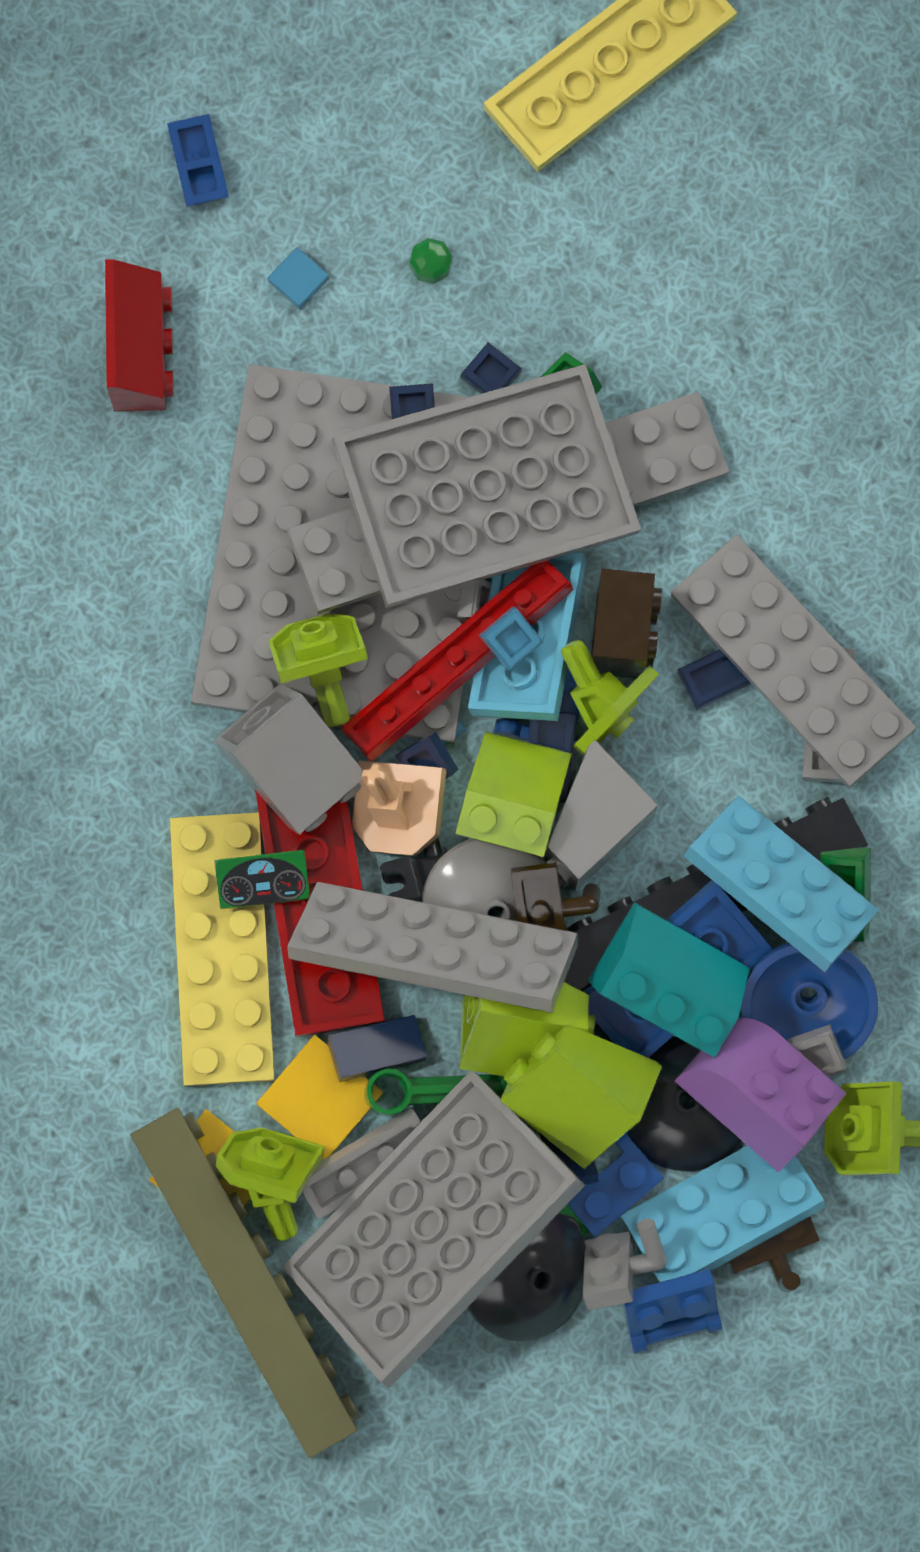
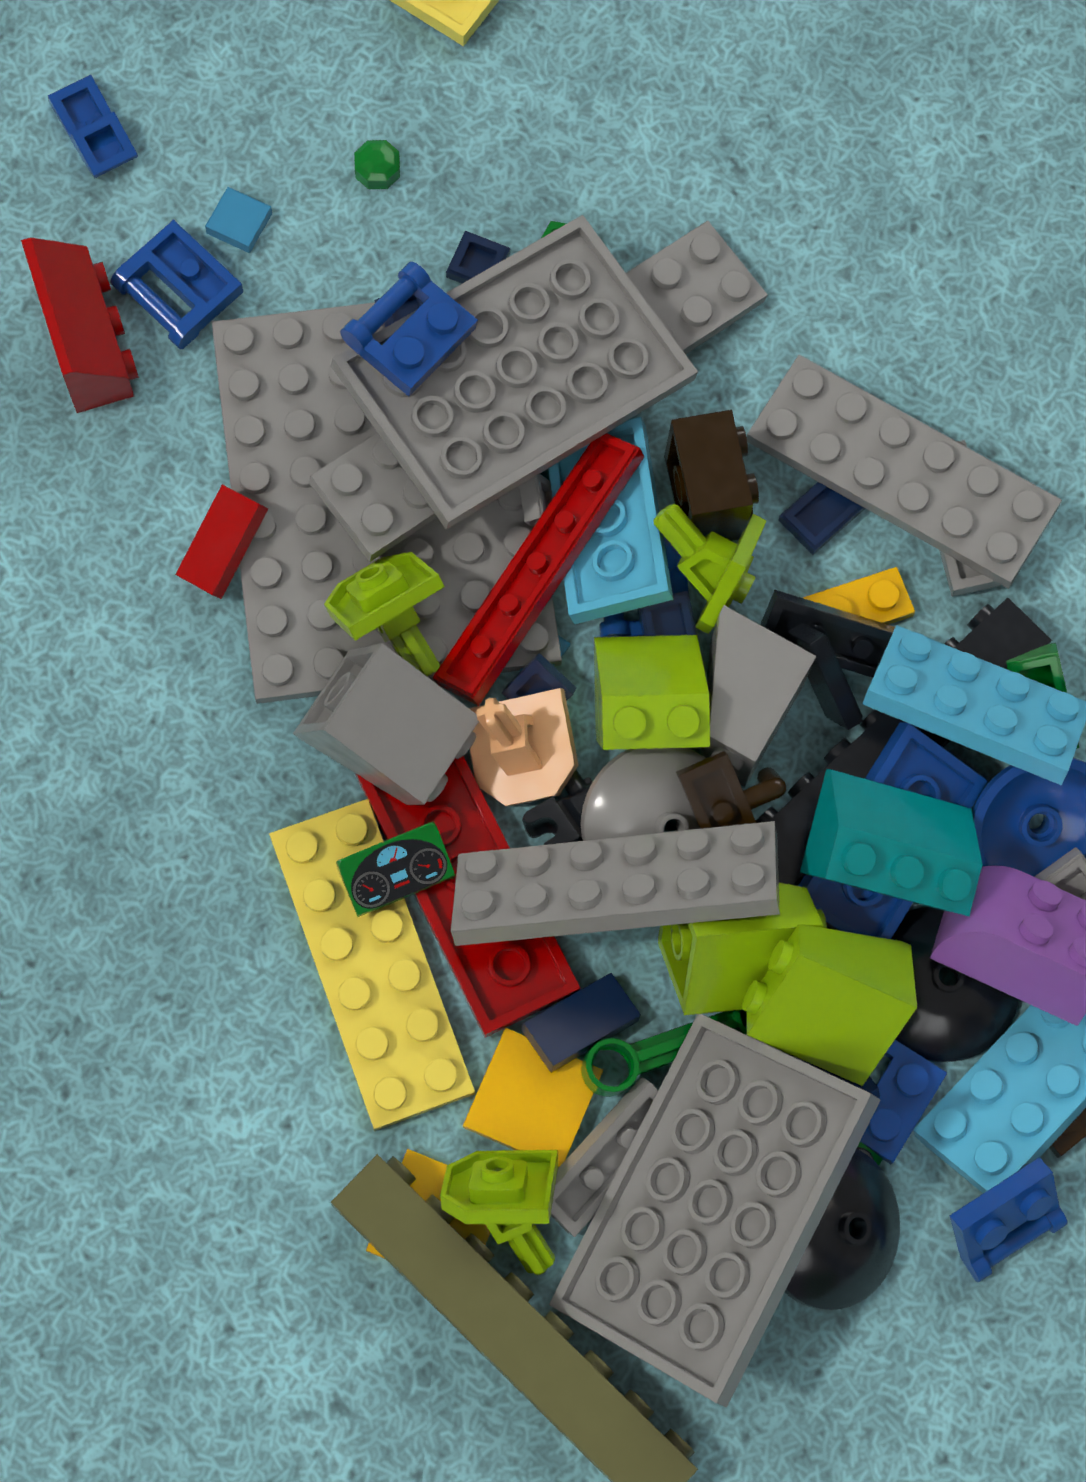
camera: 20 degrees left, 5 degrees down
(201, 560) = (221, 541): none -> red tile
(241, 315) = (188, 272): none -> blue plate
(411, 442) = (421, 340): none -> blue plate
(511, 638) = (594, 524): dark azure tile -> none
(612, 1263) = (927, 1191): light grey plate -> none
(667, 820) = (827, 677): none -> black tile
(679, 783) = (855, 639): none -> black plate
(719, 766) = (875, 597): none -> yellow plate

